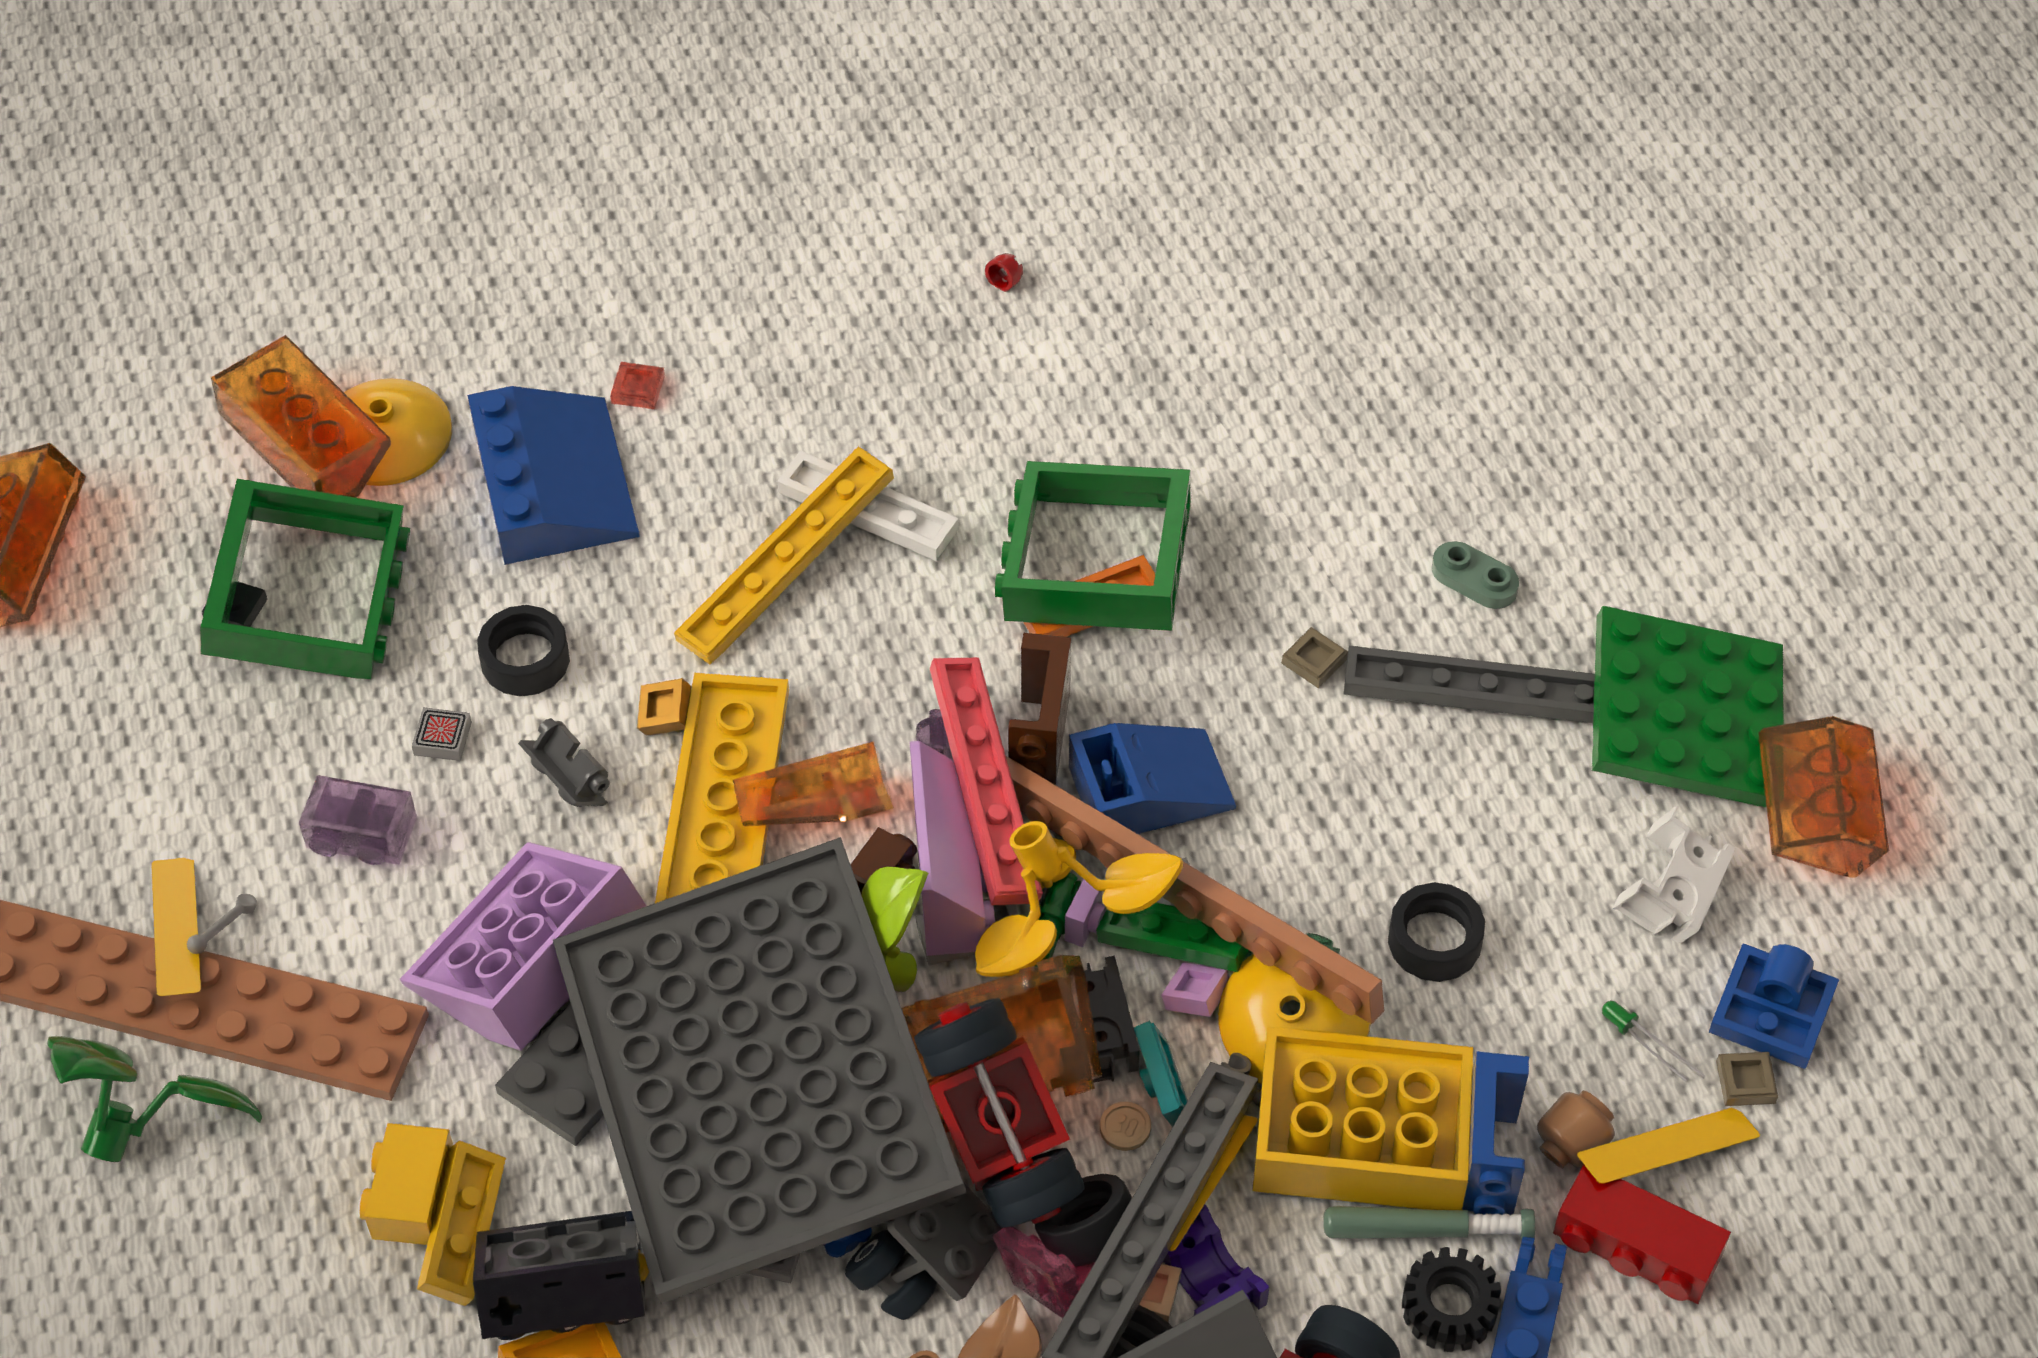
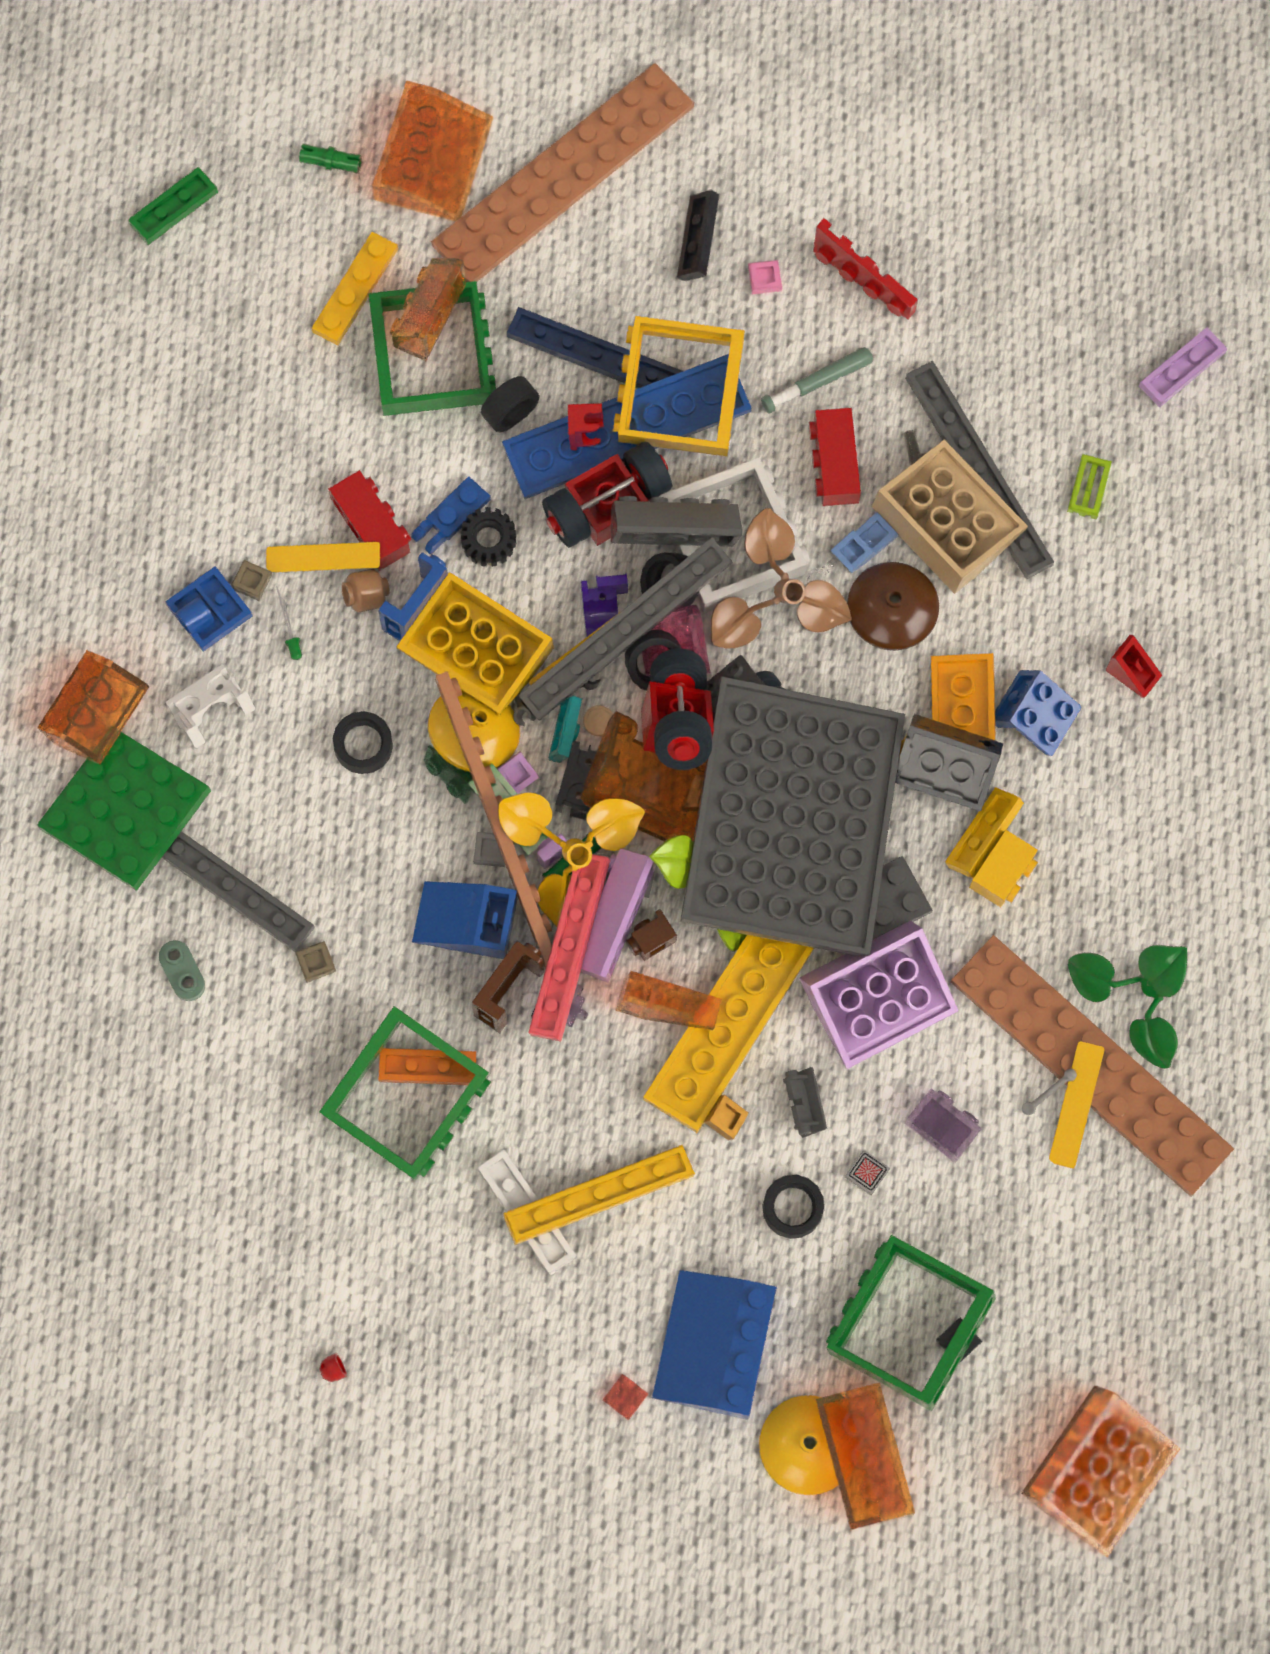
camera: 155 degrees left, 20 degrees up
(1419, 1223) = (506, 599): sand green piece -> none

